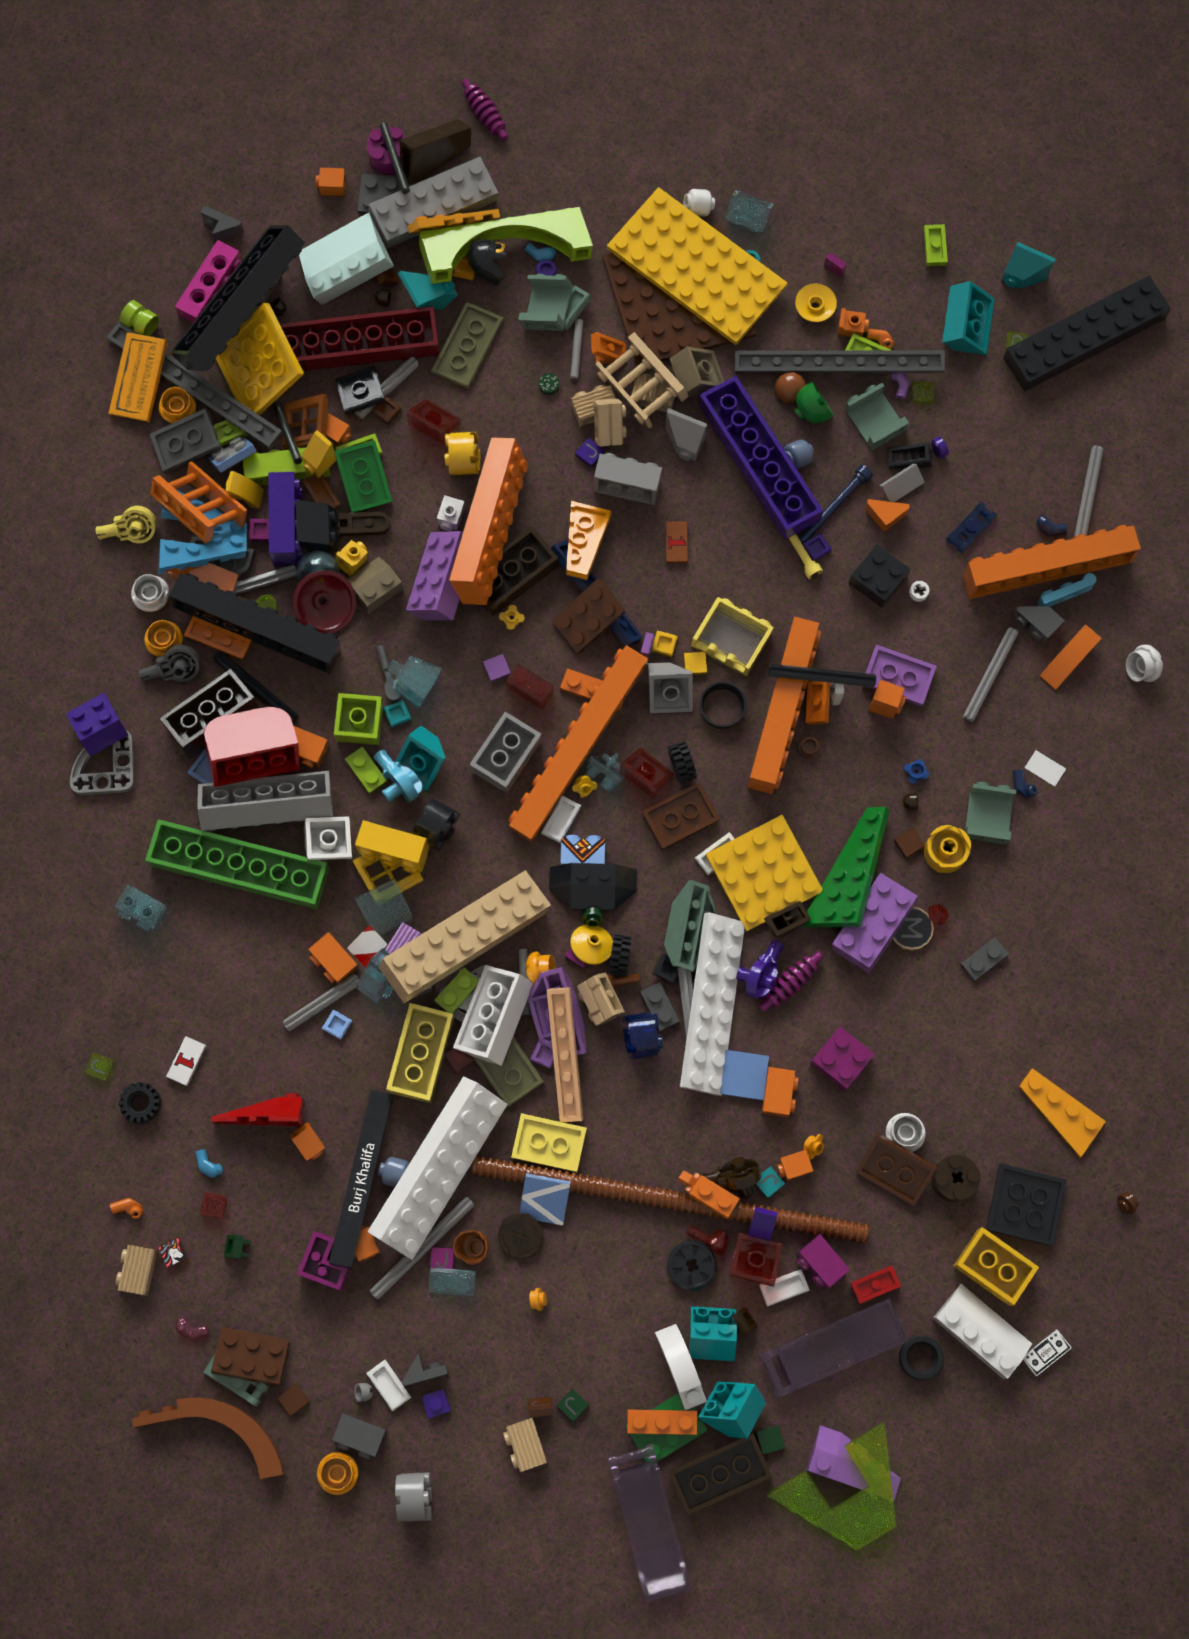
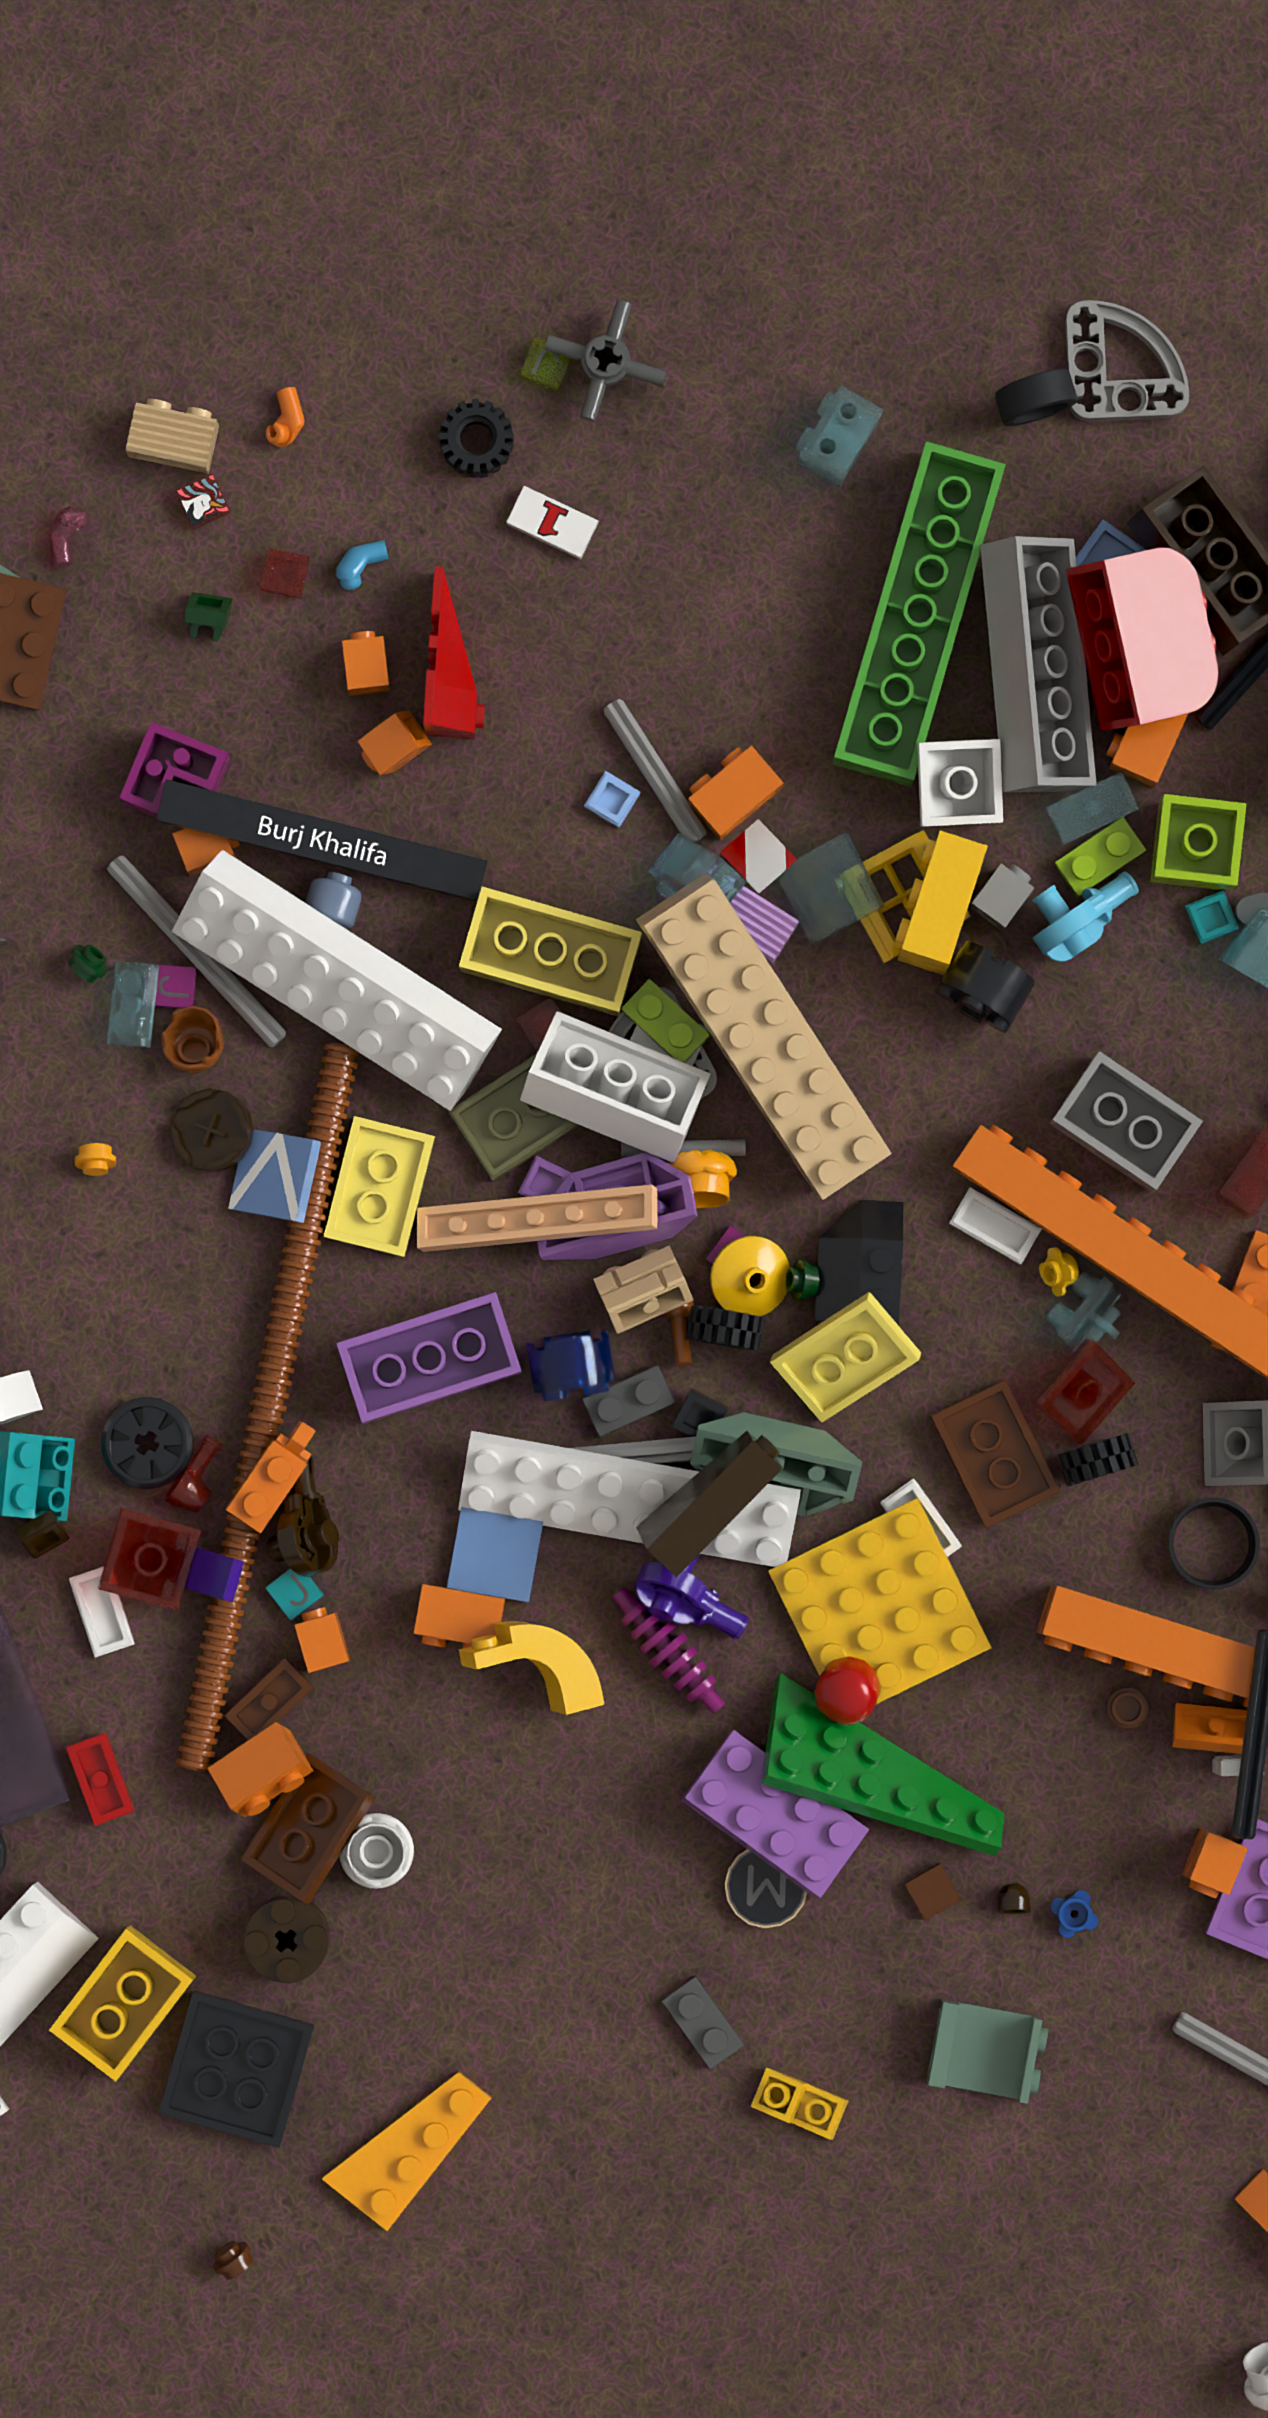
camera: 90 degrees right, 10 degrees up
(89, 1032) = (614, 373): none -> dark grey bar
(97, 724) = (1196, 348): dark purple brick -> none
(121, 806) = (1036, 397): none -> black tyre
(263, 1158) = (365, 664): none -> orange brick
(340, 774) = (1092, 808): none -> clear light blue plate
(387, 816) = (1003, 895): none -> light grey brick
(422, 755) = (1123, 963): teal slope -> none
(429, 1307) = (88, 963): none -> dark green plate
(582, 849) = (928, 1264): brick -> none
(633, 891) = (845, 1357): none -> light yellow plate
(641, 1111) = (429, 1358): none -> medium lavender brick
(714, 956) = (709, 1502): none -> dark brown slope
(787, 919) = (784, 1647): dark brown slope -> none
(803, 1034) = (565, 1667): none -> yellow arch
(808, 886) = (847, 1690): none -> red hair
(814, 1145) = (357, 1678): light orange plate -> none
(821, 1262) = (140, 1680): magenta brick -> none
(829, 1193) = (269, 1700): none -> reddish brown plate
(842, 1058) = (517, 1739): magenta brick -> none
(867, 1195) = (261, 1770): none -> orange brick
(938, 914) = (791, 1938): clear red plate -> none
(952, 838) = (938, 1969): yellow brick -> none
(1021, 786) = (1038, 2118): dark blue arm -> none
(1023, 908) = (799, 2103): none -> yellow slope
(1045, 768) = (1076, 2167): white sticker -> none

